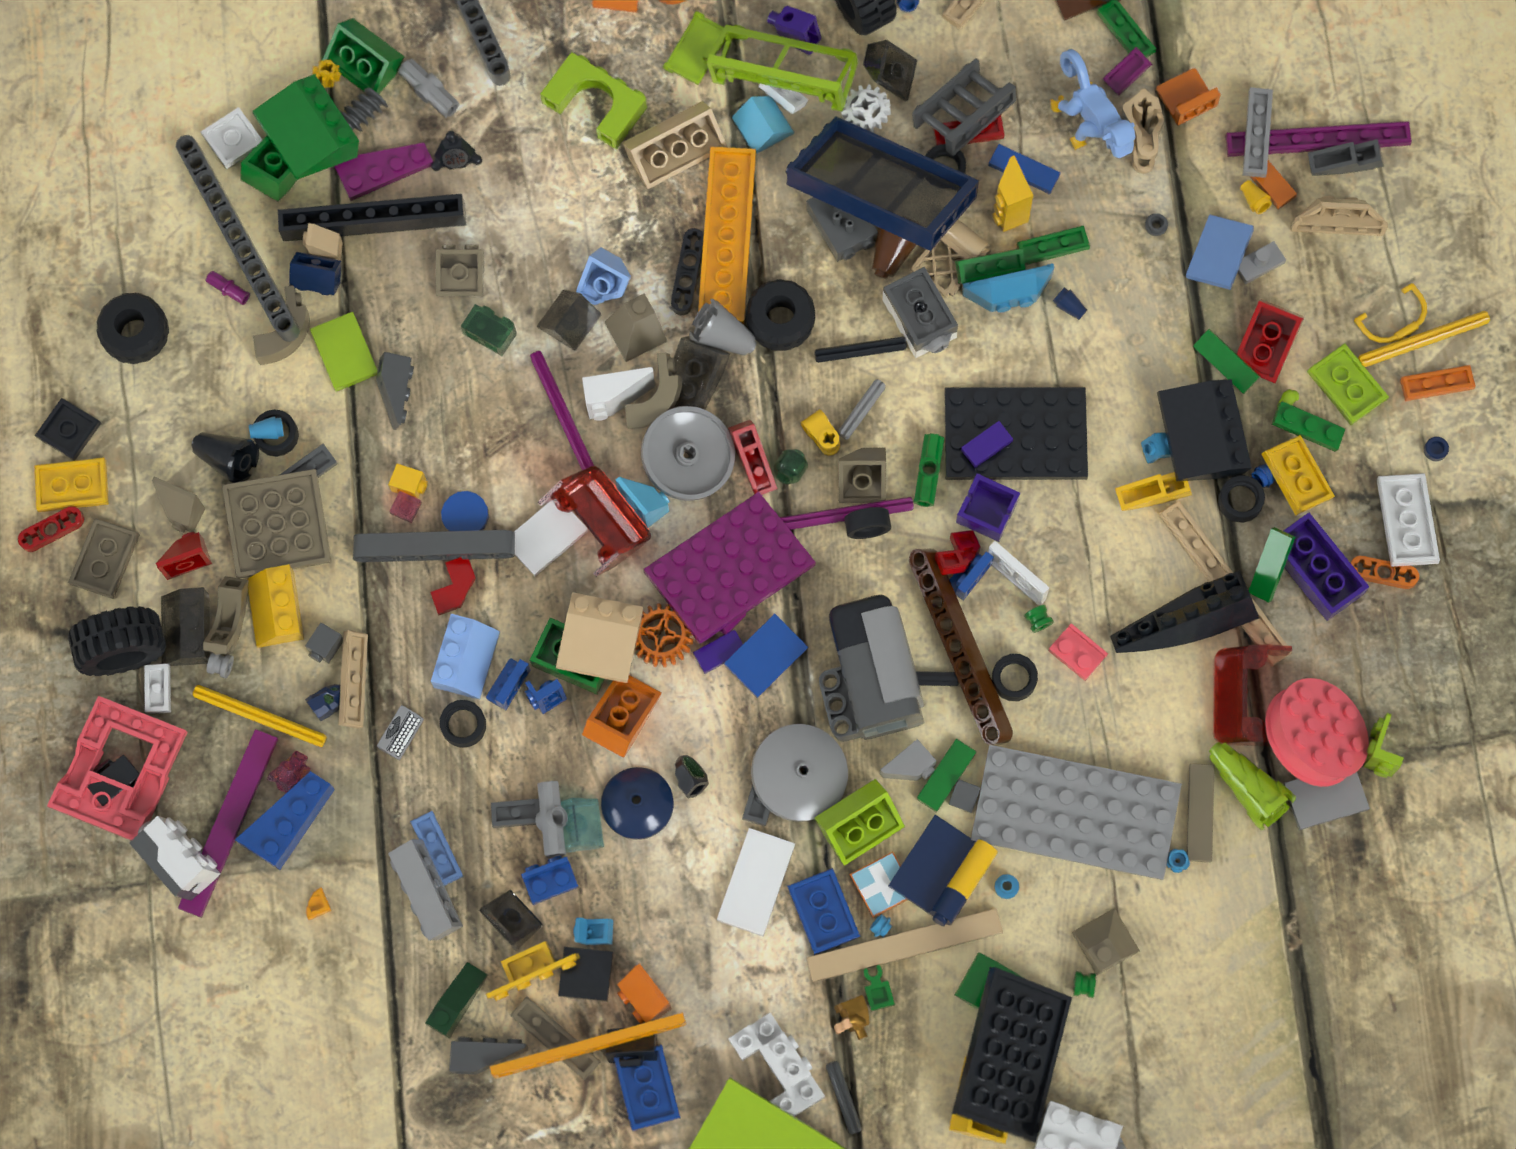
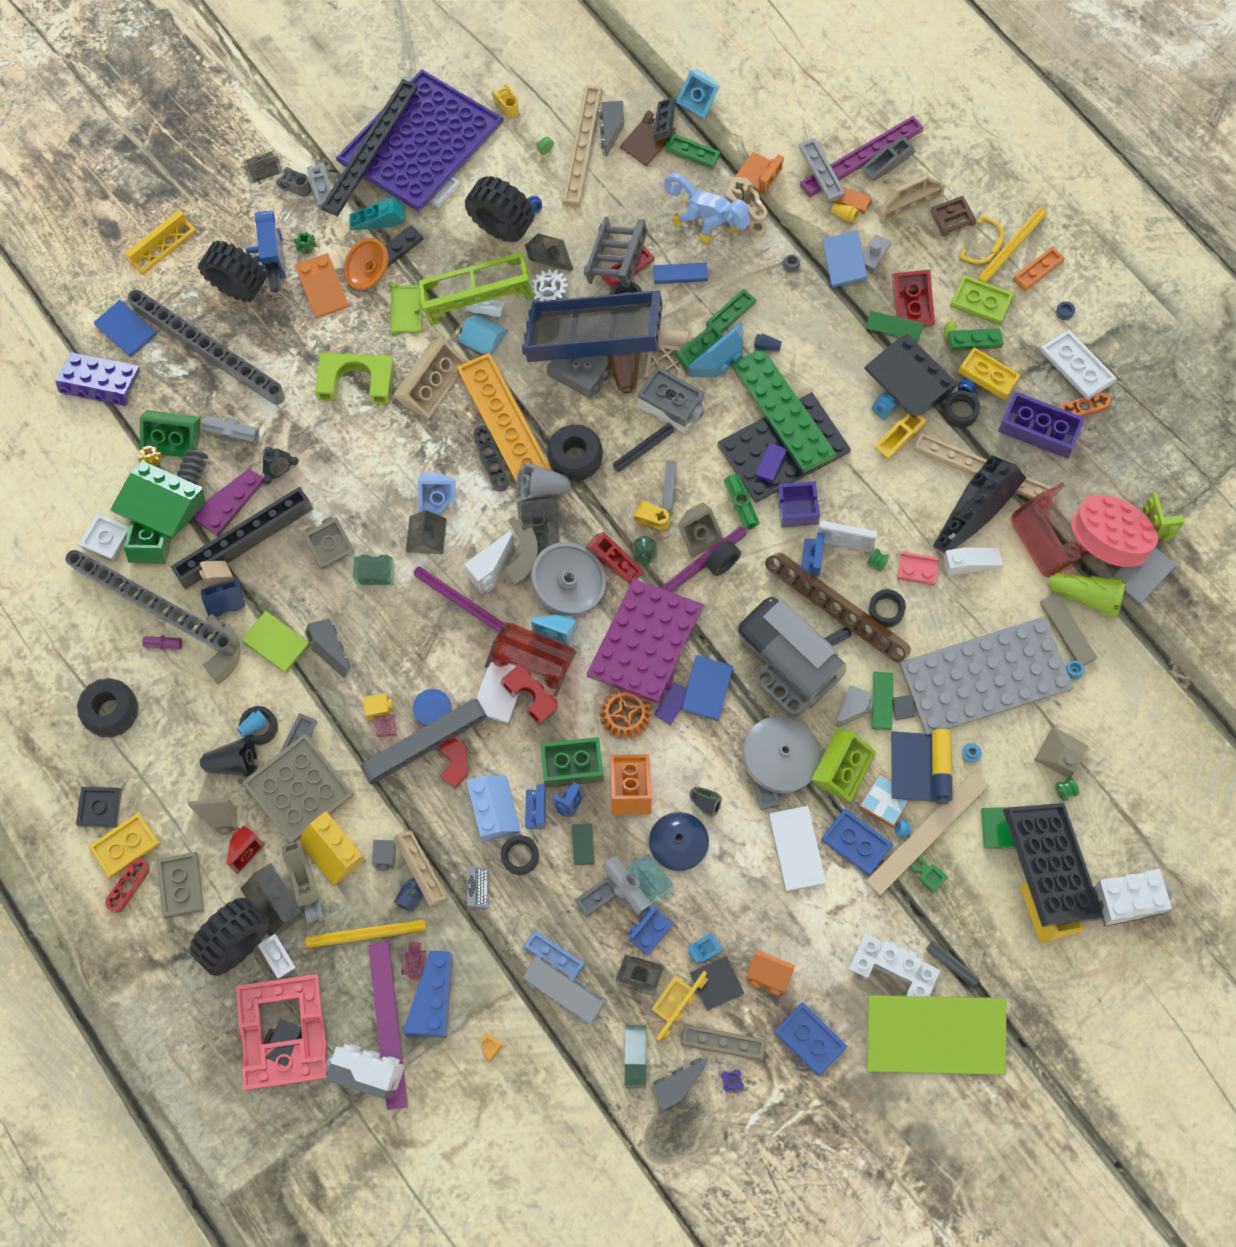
camera: 30 degrees left, 5 degrees down
(535, 749) = (583, 844): none -> dark green tile
(538, 1076) = (728, 1086): none -> dark purple plate
(570, 536) = (519, 681): none -> red arch
(588, 1045) = (752, 1032): light orange tile -> none
(599, 637) = (586, 736): tan slope -> none
(635, 328) = (477, 514): dark tan slope -> none
(640, 1050) = (779, 1013): black piece -> none
(796, 25) = (468, 255): dark purple torso -> none
(854, 1016) = (925, 902): pearl gold piece -> none
(965, 551) = (800, 545): red tile -> none
(1012, 198) = (688, 291): yellow slope -> none
(1037, 391) = (783, 410): none -> green plate
(1127, 71) = (710, 175): magenta tile -> none
(1143, 676) = (971, 560): none -> white slope
(1271, 564) = (1011, 437): tile -> none
(1378, 259) = (951, 210): none -> reddish brown plate

